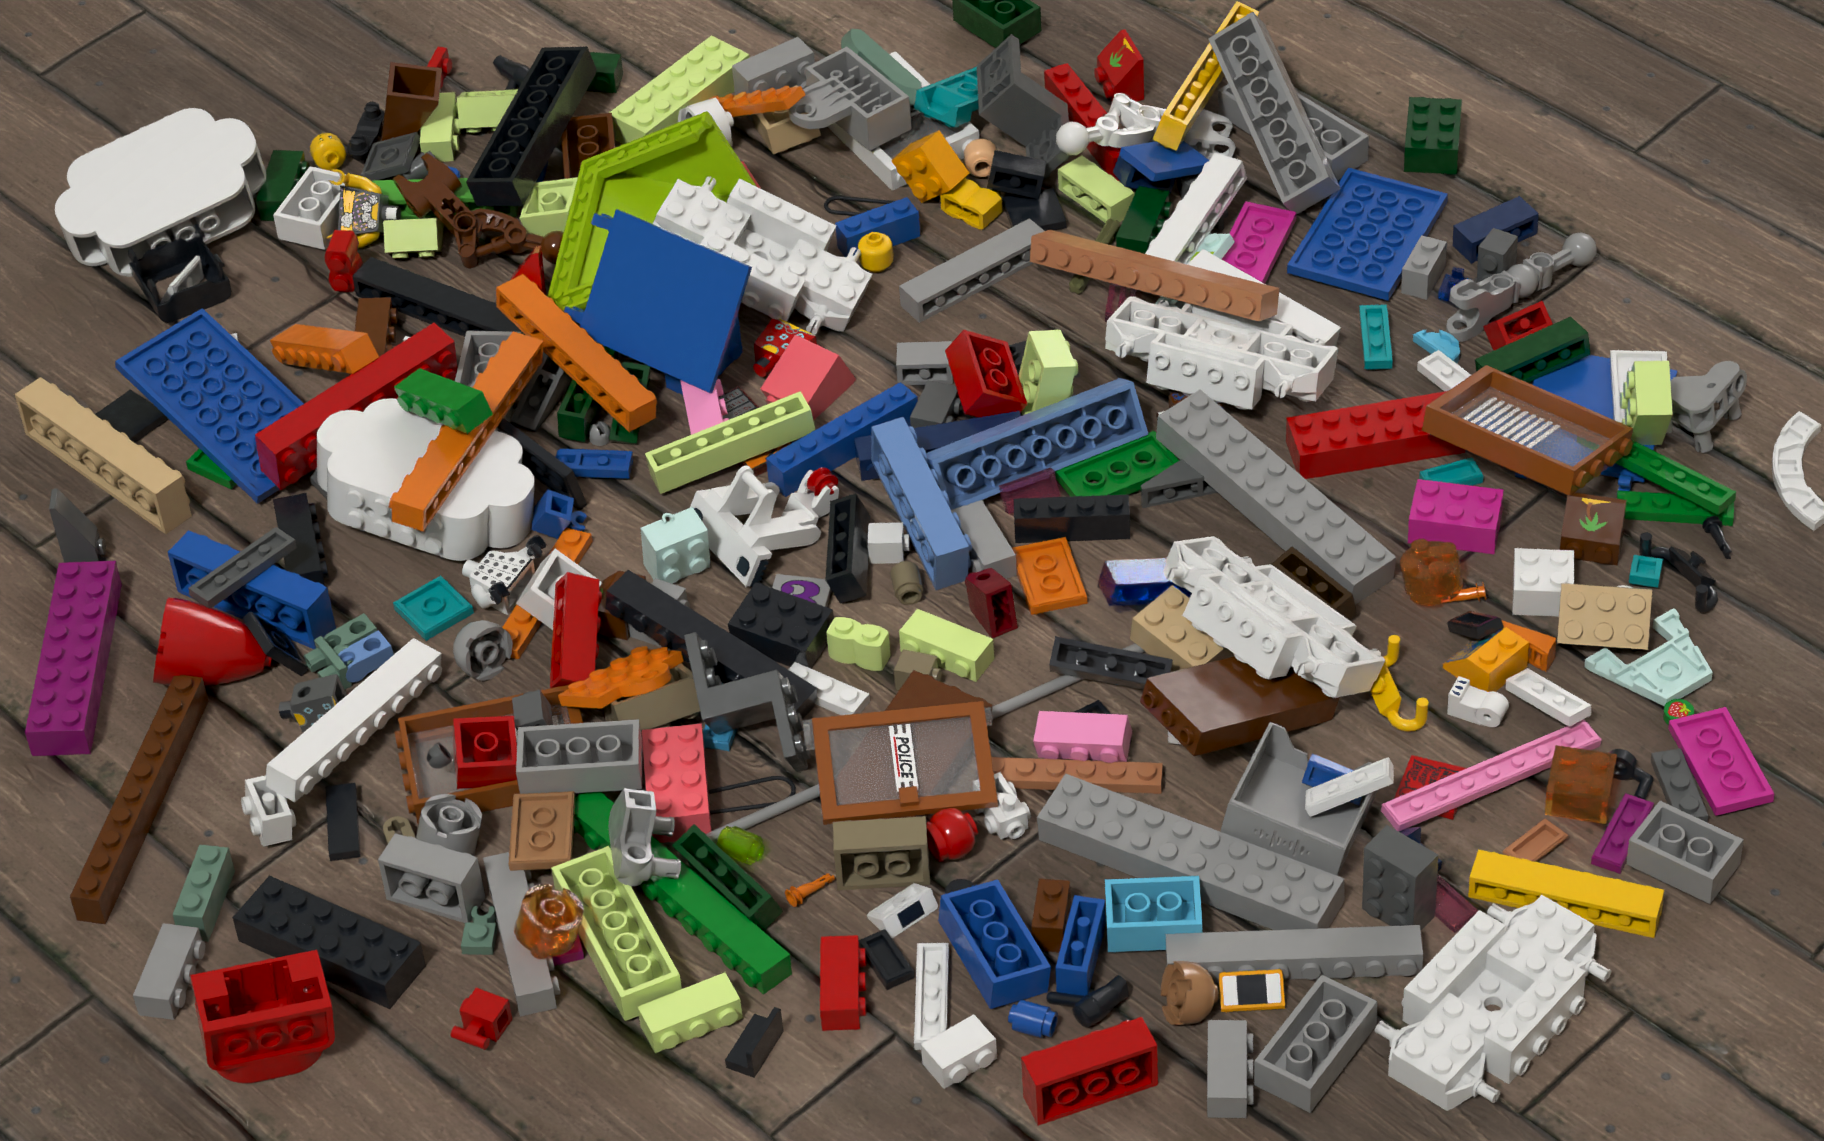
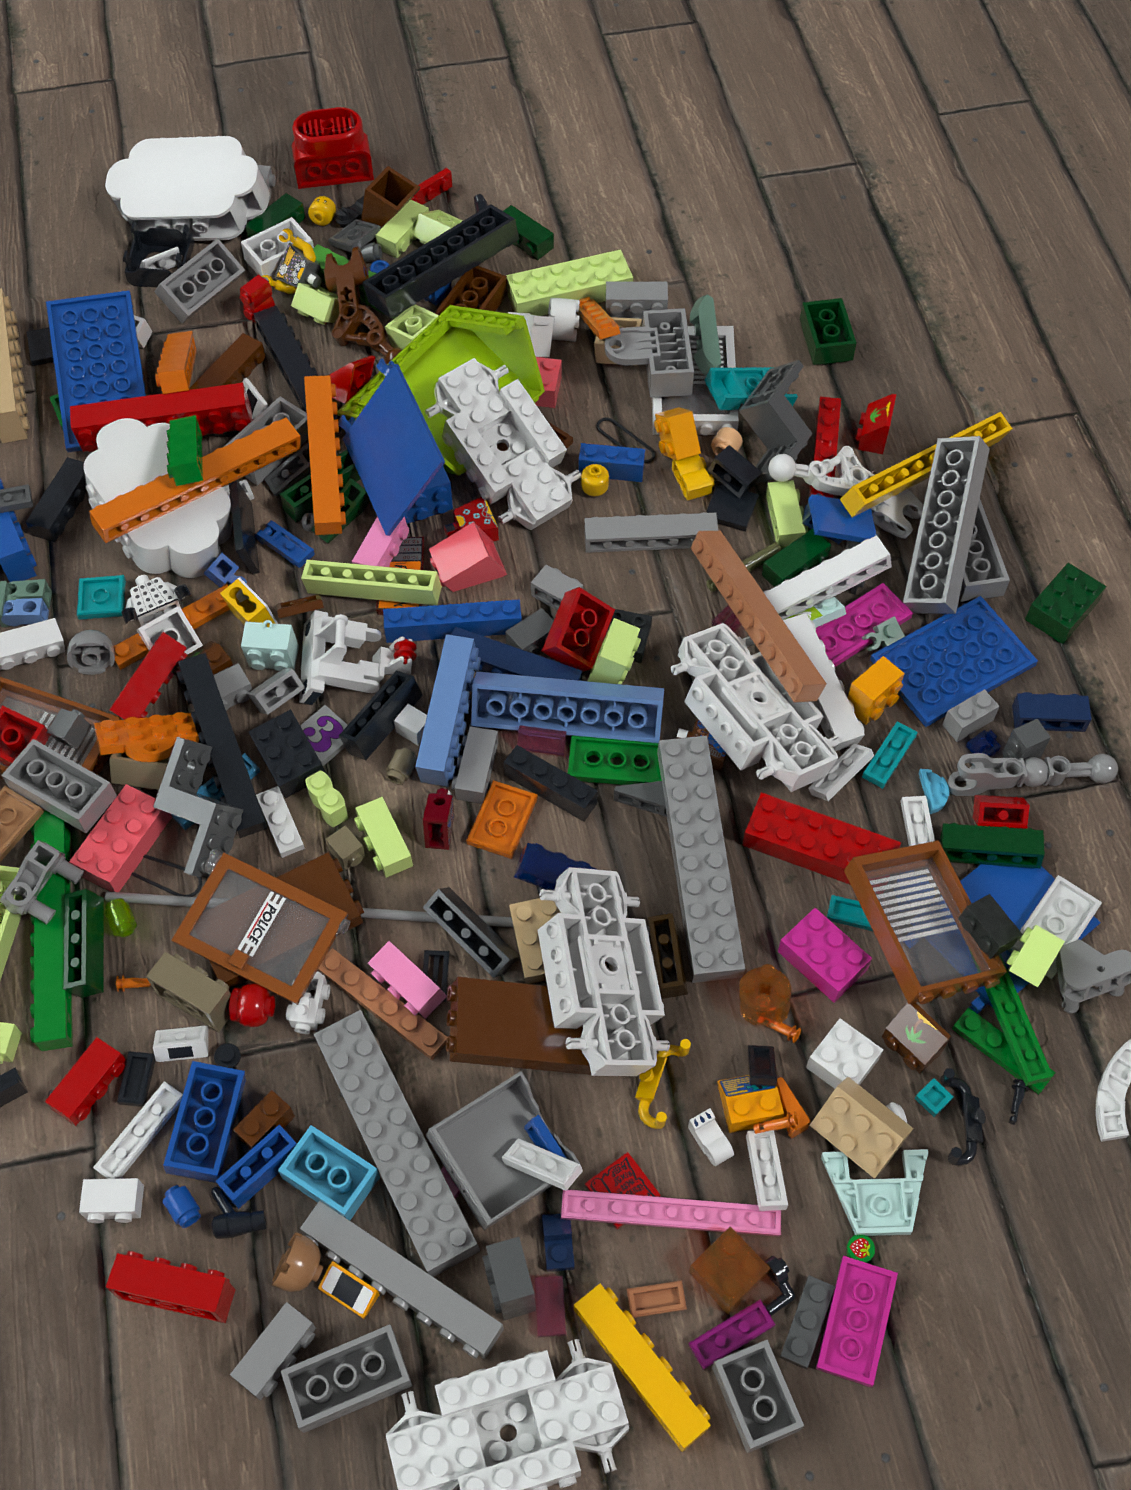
camera: 30 degrees right, 15 degrees up
(258, 274) = (199, 280): none -> light grey brick
(289, 84) = (330, 148): none -> red brick
(617, 524) = (246, 603): none -> yellow piece
(670, 501) = (299, 606): none -> reddish brown tile
(717, 583) = (276, 690): none -> light grey brick
(1285, 240) = (885, 634): none -> sand green plate
(1319, 282) = (875, 690): none -> light orange brick
(1345, 373) = (842, 772): none -> white plate
(1530, 653) = (780, 1123): none -> orange piece
(1591, 398) = (989, 926): none -> pearl dark grey brick

